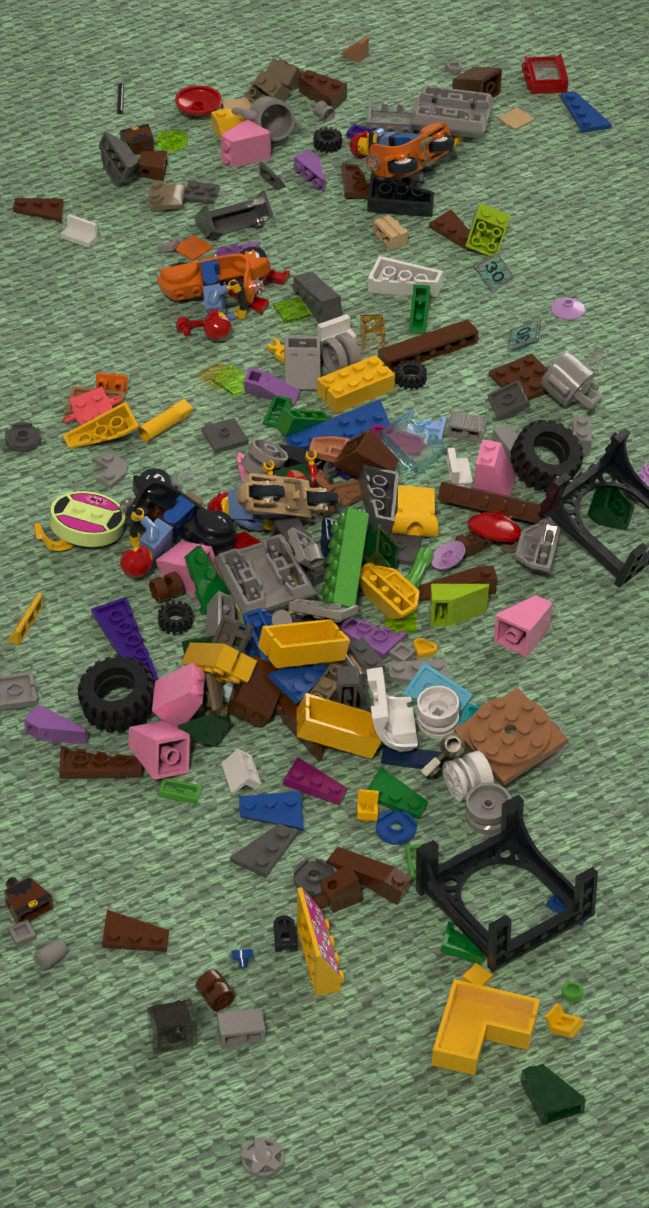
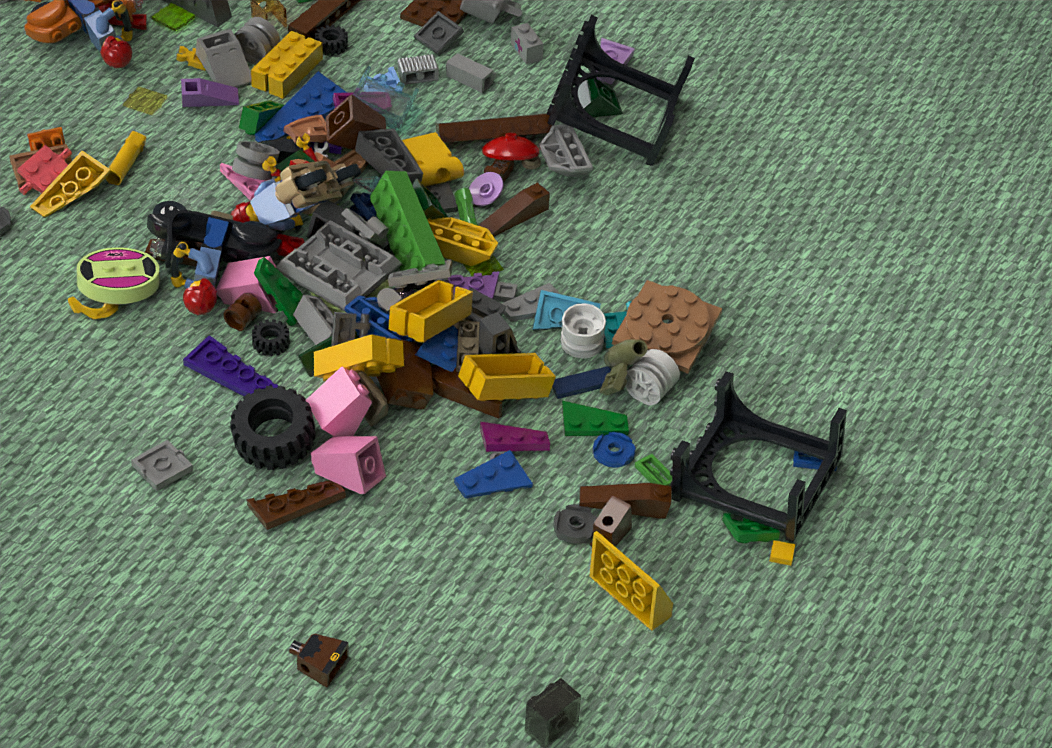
camera: 30 degrees left, 0 degrees up
(22, 933) = (336, 691): light grey tile -> none
(26, 620) = (121, 394): yellow slope -> none
(49, 726) = (224, 484): medium lavender slope -> none
(50, 954) = (381, 698): light grey piece -> none
(114, 468) = (107, 221): light grey plate -> none
(133, 934) = (443, 647): reddish brown wing -> none
(179, 793) = (392, 499): bright green tile -> none
(183, 325) = (79, 63): red piece -> none
(207, 729) = (384, 426): dark green slope -> none
(215, 990) = (556, 661): reddish brown wheel -> none
(225, 435) = (192, 153): dark grey plate -> none
(231, 380) = (163, 99): clear neon green piece -> none
(241, 771) = (436, 456): white panel -> none
(241, 1027) = (611, 687): light grey brick -> none
(242, 956) = (563, 623): blue tile -> none
(265, 851) = (511, 519): dark grey wing -> none
(277, 401) = (228, 103): green slope -> none
(283, 928) = (581, 581): black plate -> none
(335, 327) = (230, 19): white panel -> none
(367, 805) = (576, 441): yellow bracket -> none
(391, 715) = (552, 350): white piece -> none
(424, 648) = (523, 280): yellow tile -> none
(456, 603) = (526, 228): lime slope -> none
(458, 468) = (434, 109): white panel -> none
(478, 1015) = (815, 586): yellow piece -> none
(485, 808) = (688, 399): light grey wheel -> none
(493, 469) = (472, 98): bright pink slope -> none
(523, 625) = (601, 226): bright pink slope -> none
(550, 436) = (506, 82): black tyre -> none
(550, 1094) = (920, 627): dark green slope -> none
(562, 1023) = (886, 561): yellow bracket -> none
(572, 991) = (871, 530): bright green tile -> none

